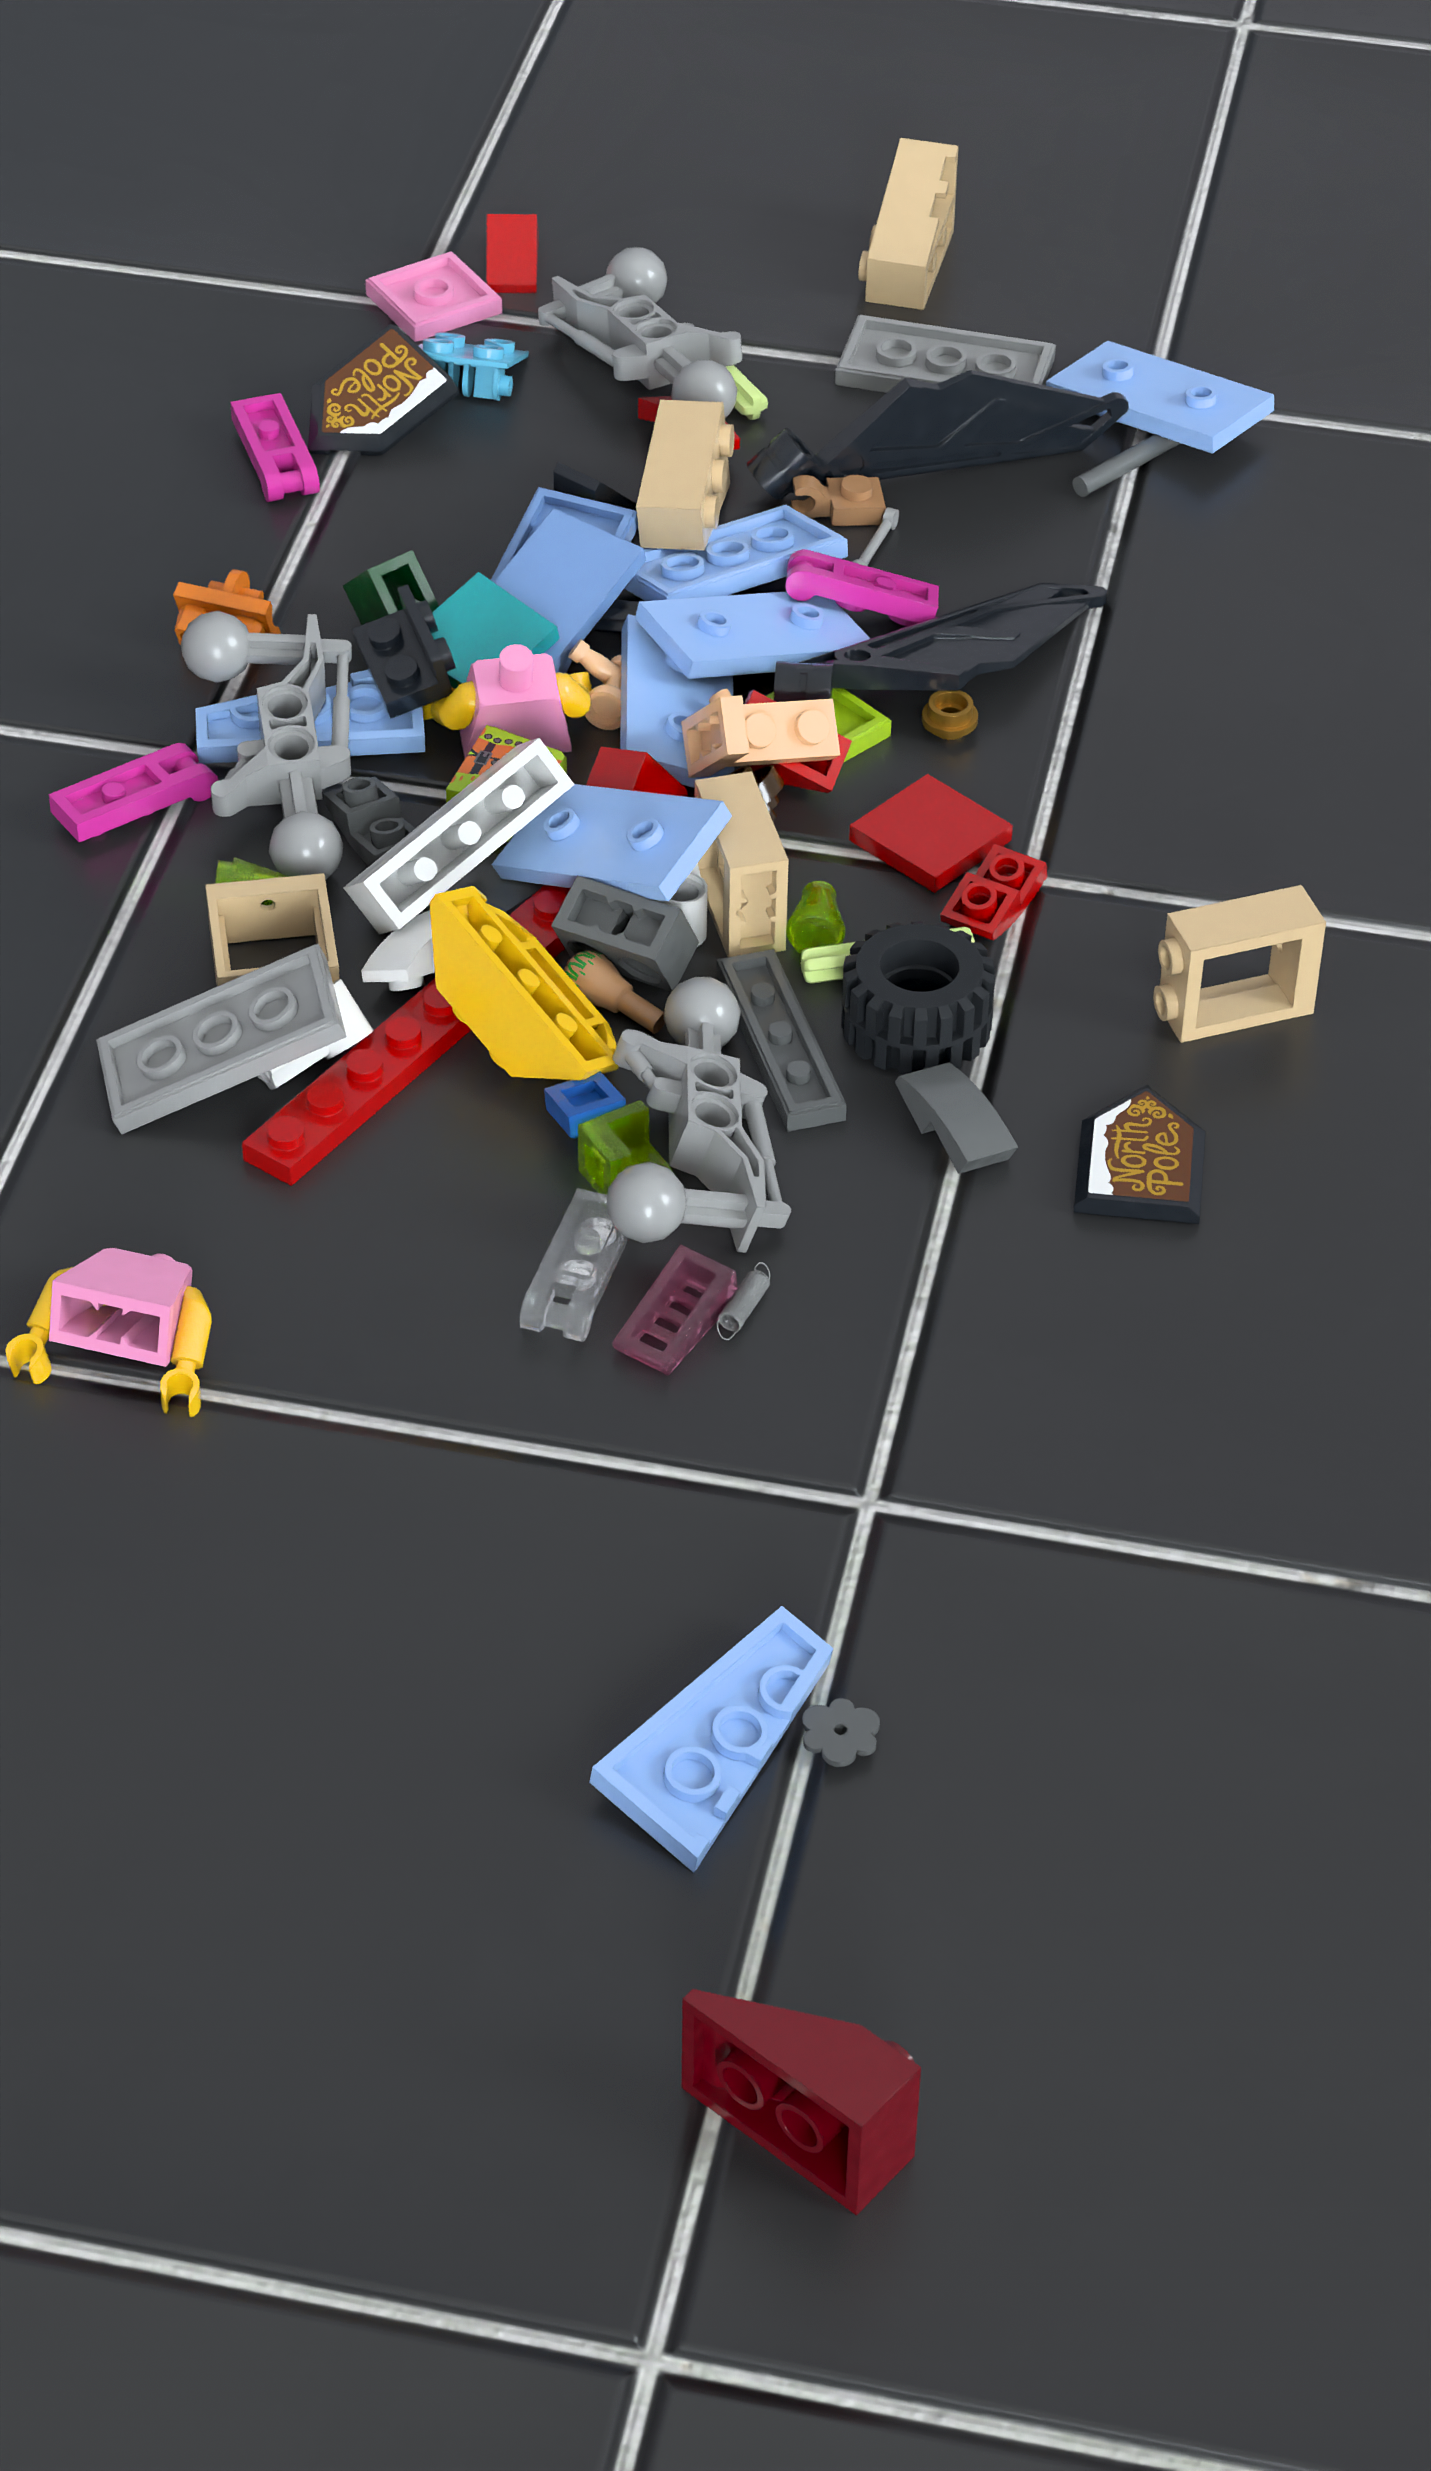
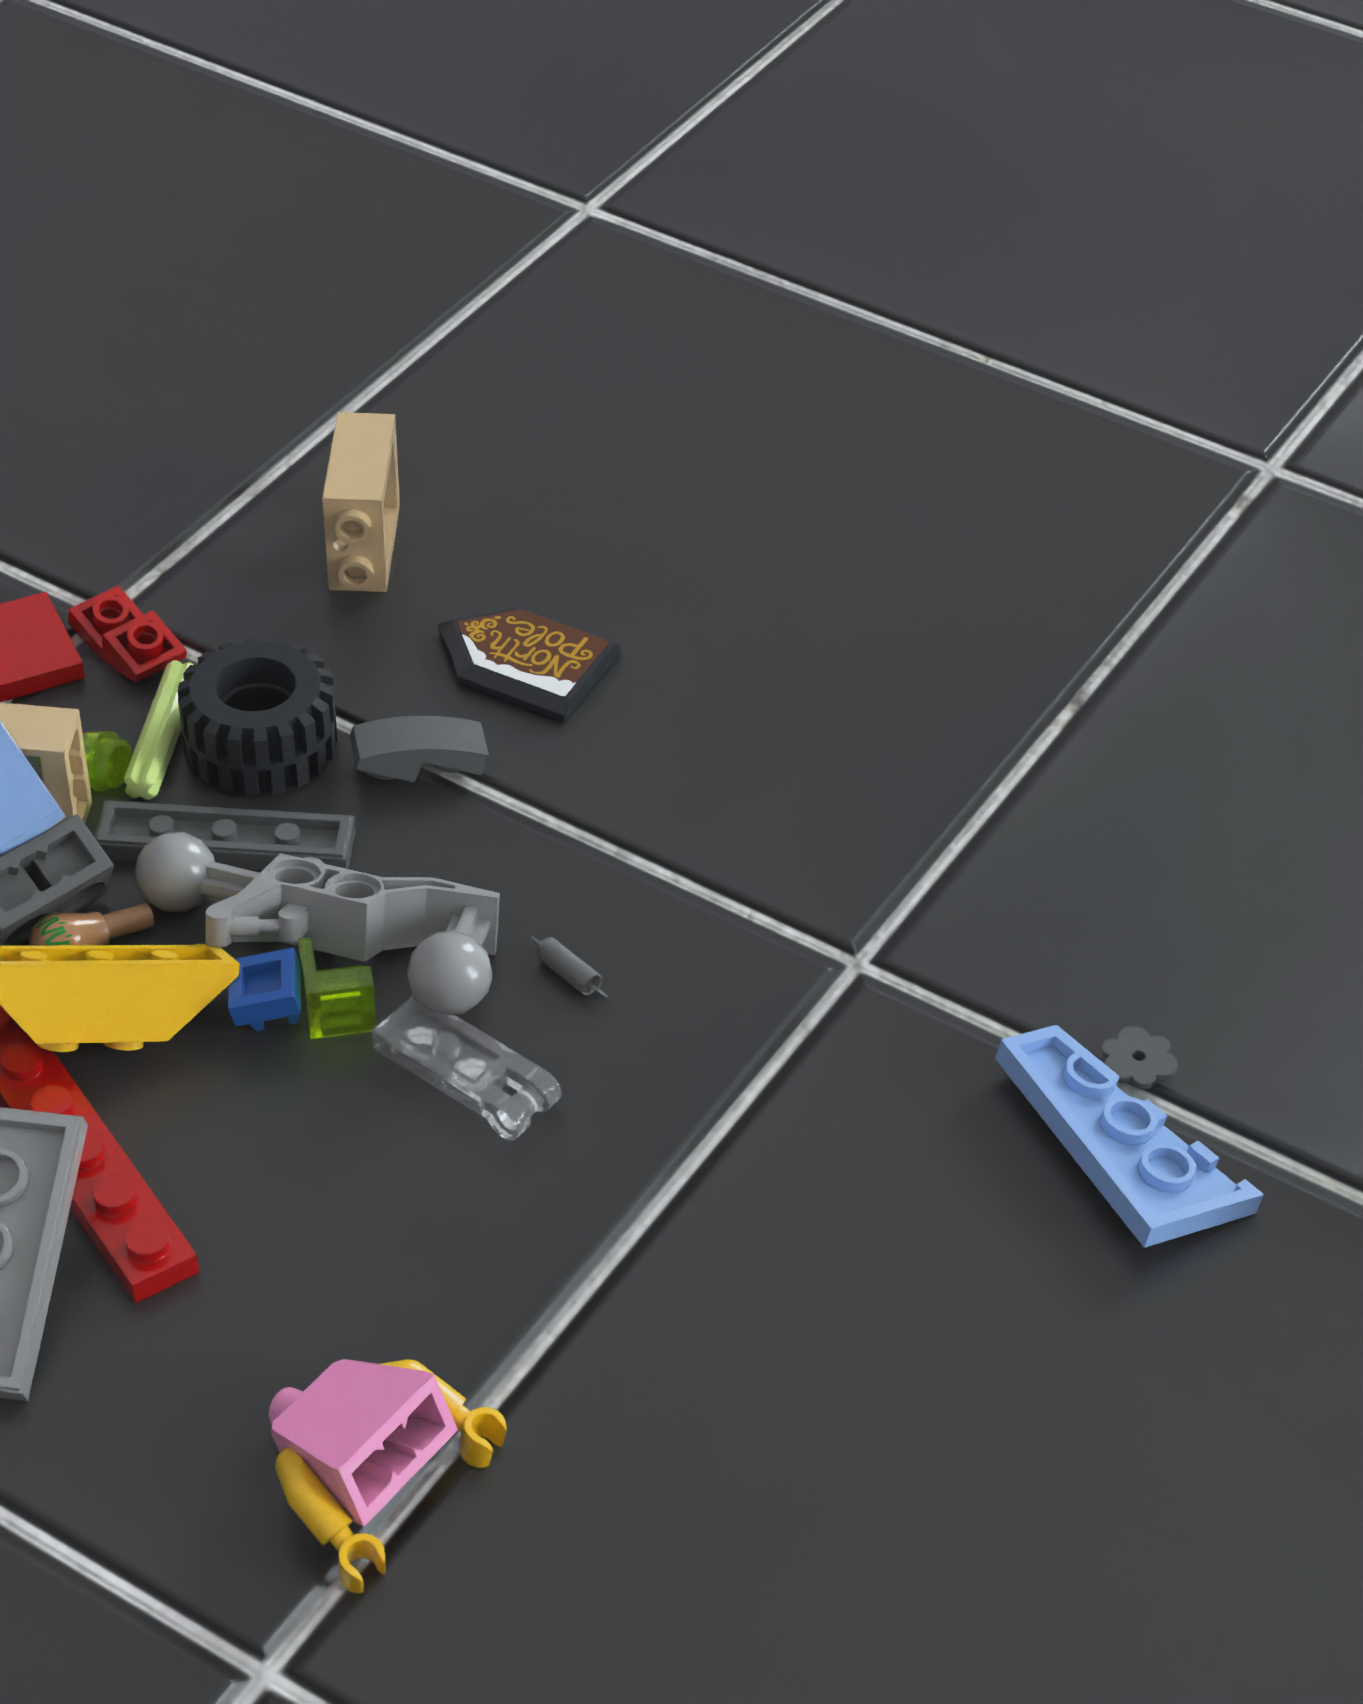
camera: 70 degrees left, 0 degrees up
(682, 1270) = (555, 973): clear pink slope -> none

